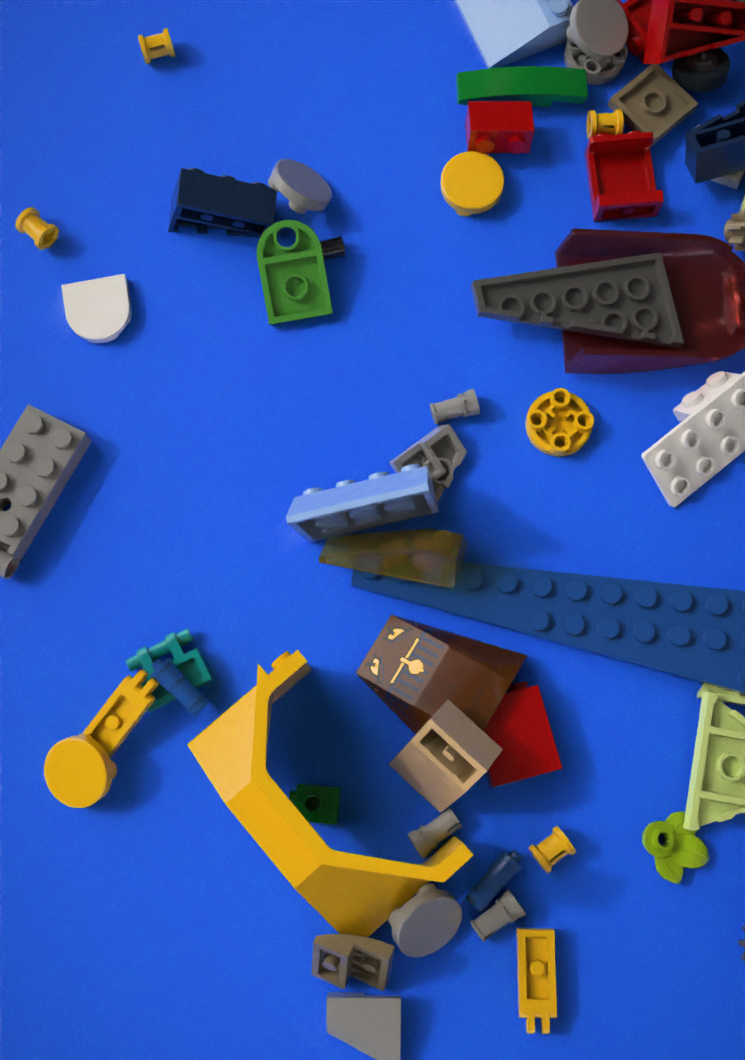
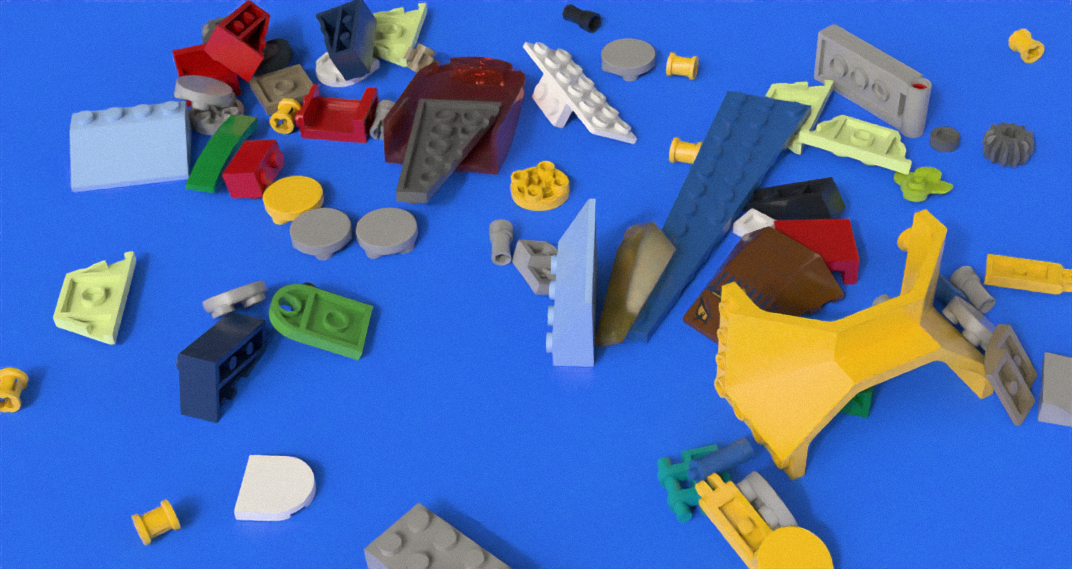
camera: 75 degrees left, 35 degrees down
(135, 740) = (766, 501): none -> light grey tile
(286, 63) = (95, 299): none -> yellowish green wing
(428, 227) = (321, 232): none -> light grey tile
(443, 290) = (387, 232): none -> light grey tile
(446, 757) = (831, 273): tan slope -> none
(551, 665) = (751, 221): none -> white tile
(590, 707) = (799, 200): none -> black slope
(636, 222) = (382, 110): none -> light grey pin
(655, 564) = (683, 151): none -> yellow bush

